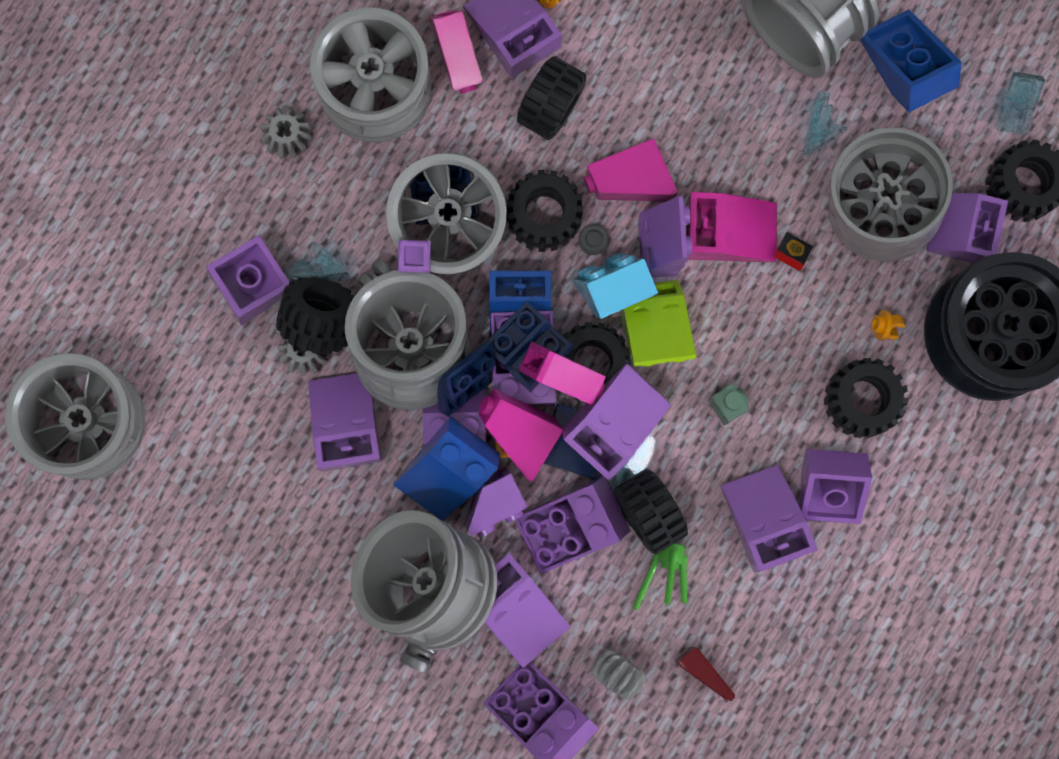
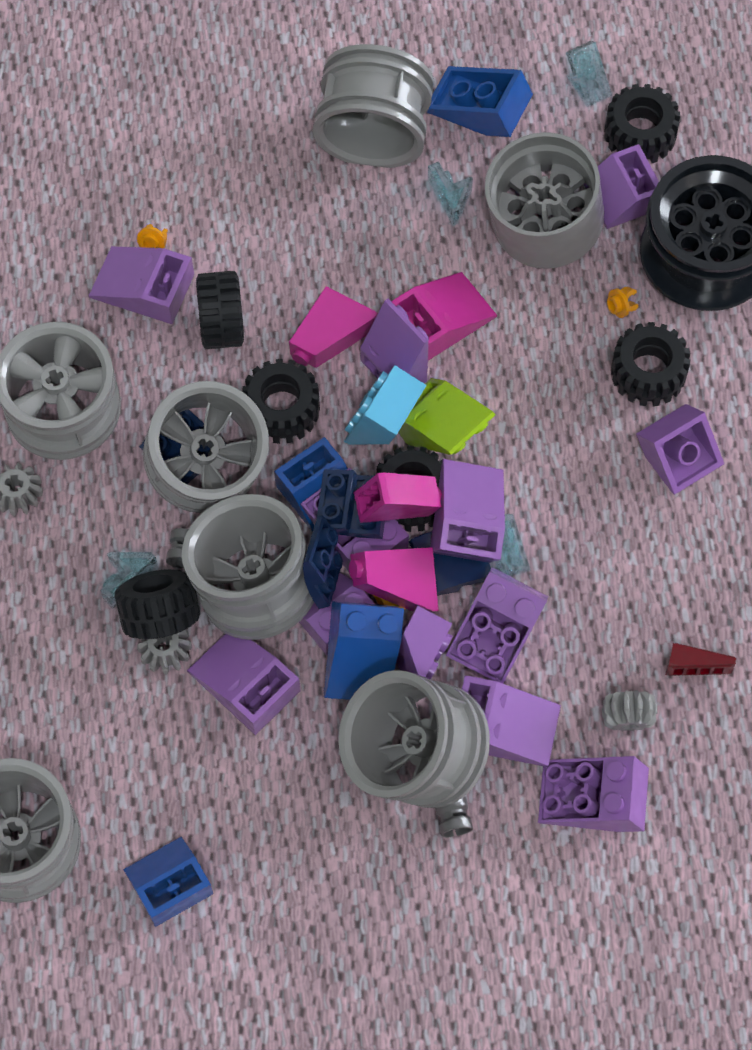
camera: 30 degrees left, 15 degrees down
(168, 539) = (169, 881): none -> blue slope
(248, 279) = (75, 622): medium lavender slope -> none
(414, 256) = (207, 490): medium lavender tile -> none
(456, 50) = (113, 327): slope -> none
(593, 239) = (337, 399): dark grey tile -> none
(651, 511) = (553, 562): black tyre -> none
(672, 559) = (599, 595): bright green plant -> none
(729, 403) = (550, 439): sand green brick -> none
(768, 519) = (651, 508): medium lavender slope -> none
(793, 251) = (504, 298): tile -> none

